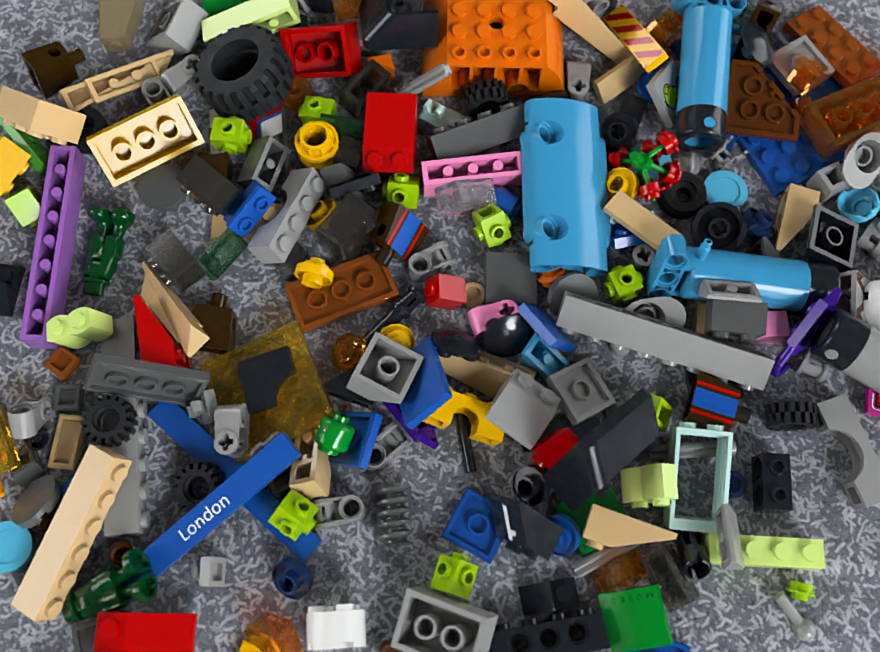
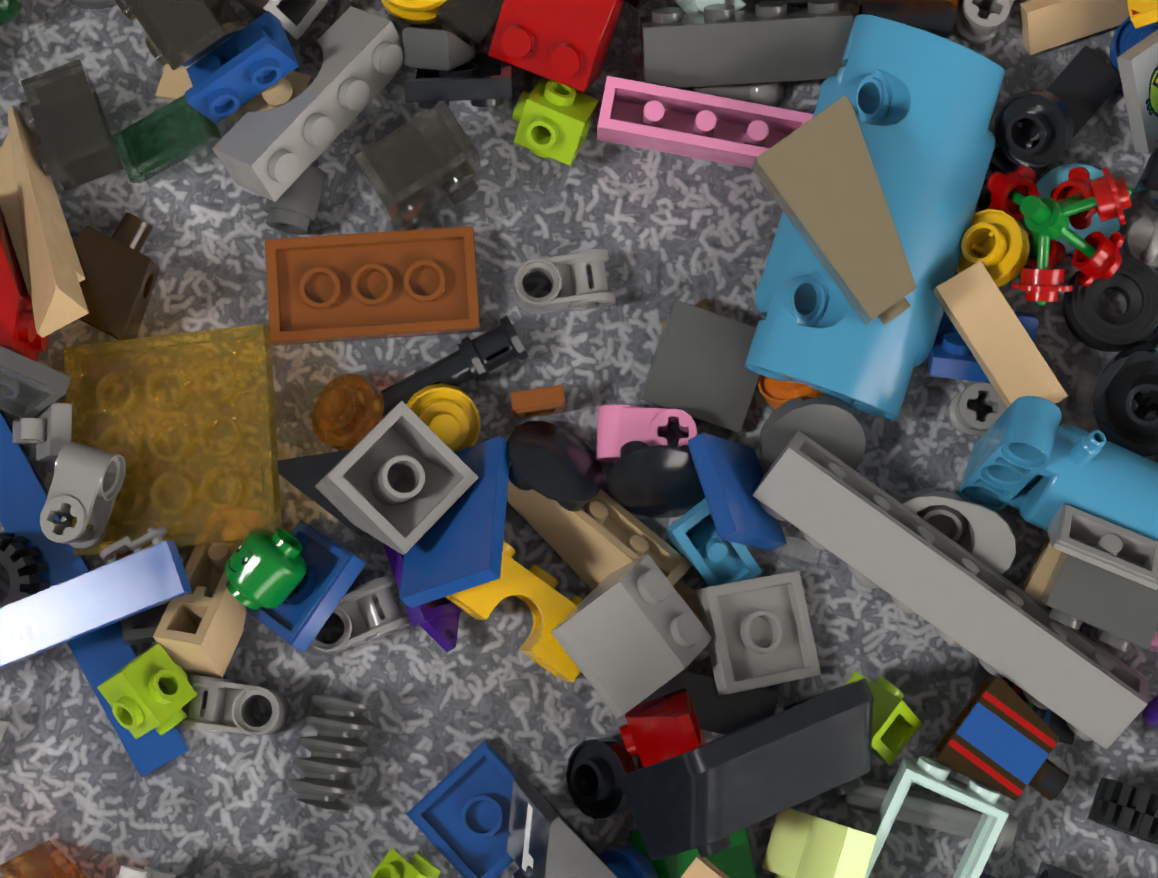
camera: 20 degrees right, 10 degrees up
(263, 376) = (169, 414): black tile -> none
(292, 578) = (113, 800): dark blue plate -> none
(314, 273) = (326, 240): yellow plate -> none
(320, 212) = (381, 117): yellow plate -> none
(396, 233) = (512, 208): dark brown torso -> none
(438, 319) = (538, 402): none -> dark orange tile
(445, 291) = (568, 353): brick -> none
(465, 196) = (672, 171): clear slope -> none
(465, 441) = (510, 655): black bar -> none
(474, 295) = (622, 372): tan tile -> none
(491, 225) = (705, 247): lime brick -> none
(508, 202) = (747, 204): blue brick -> none
(551, 182) = (838, 207): none -> dark tan slope
(623, 284) = (905, 461): lime brick -> none

